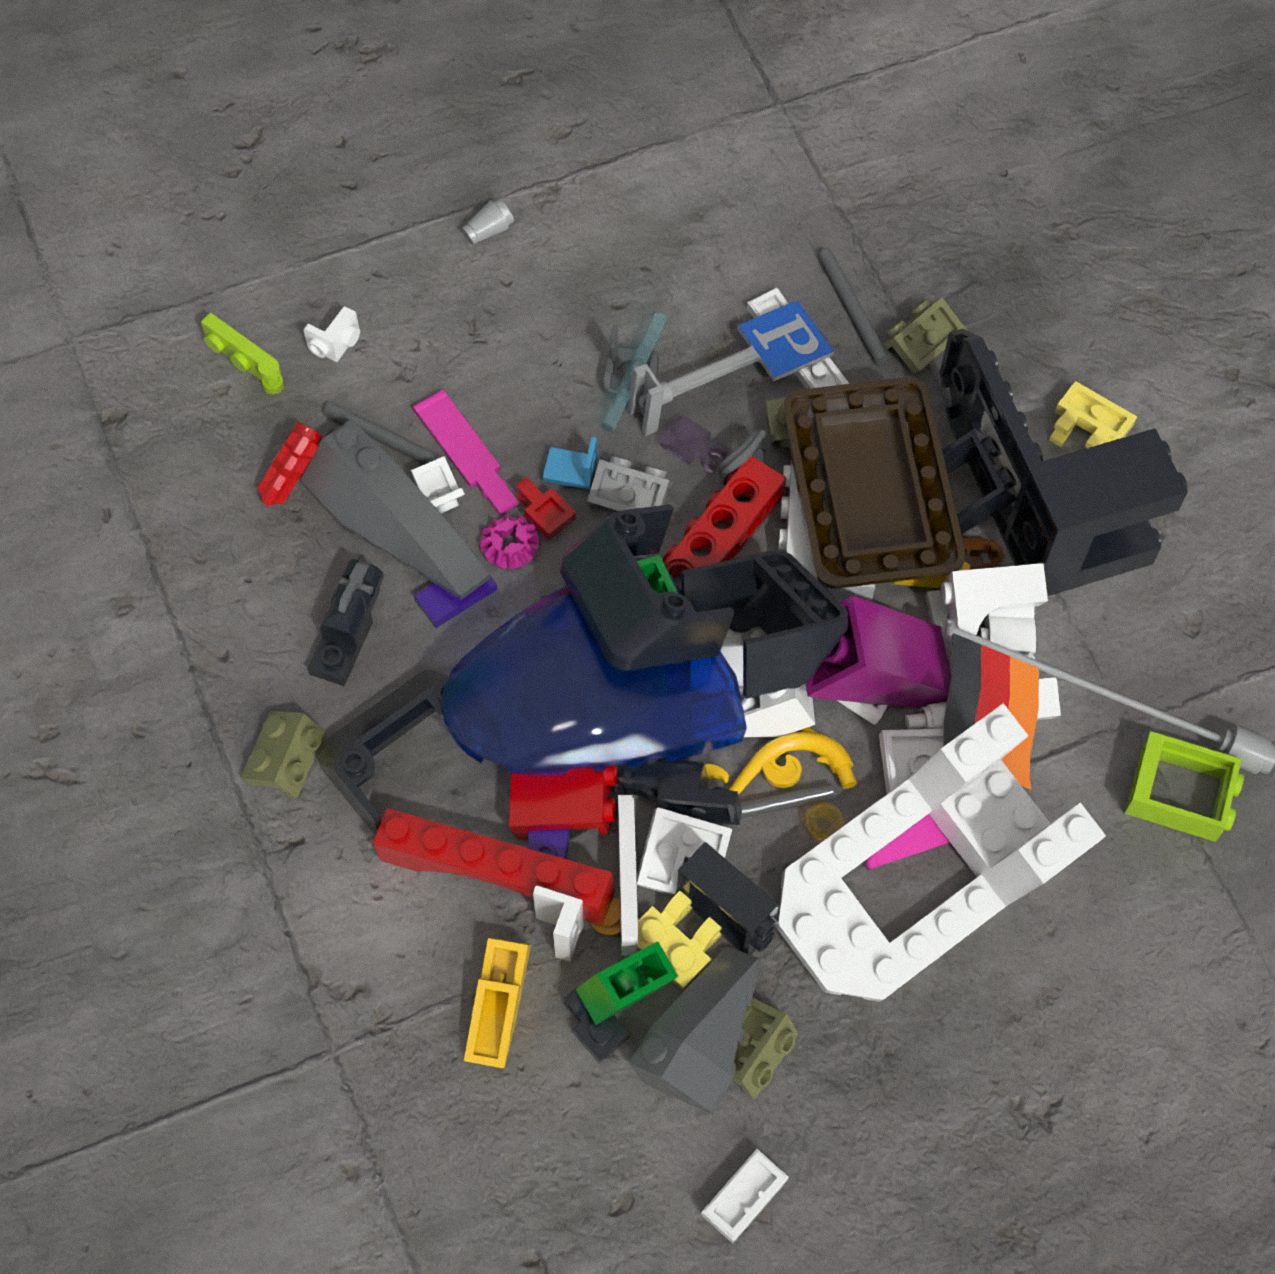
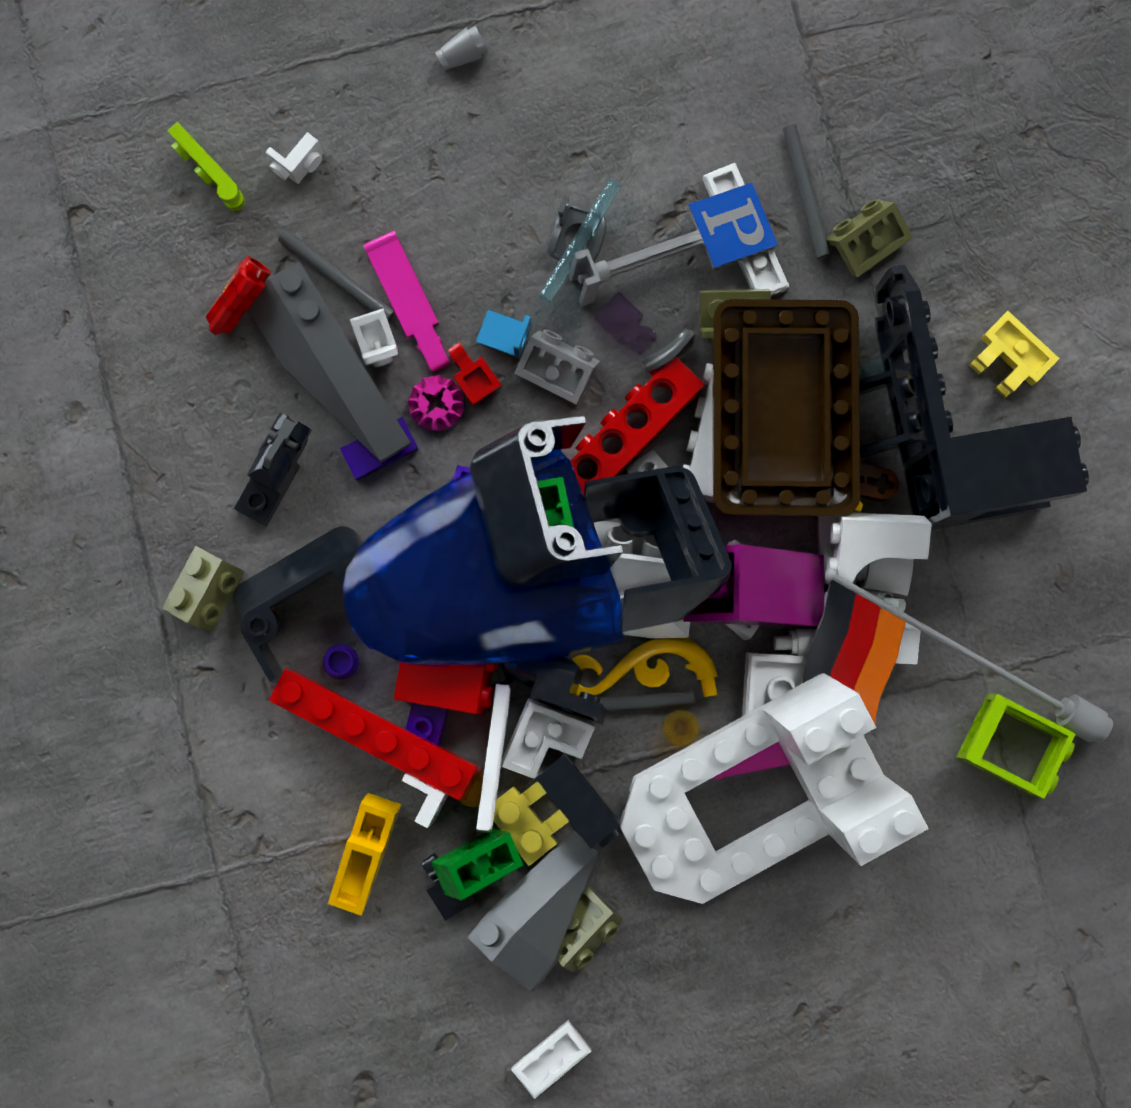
camera: 15 degrees right, 20 degrees up
(443, 806) = (340, 661): none -> dark purple plate

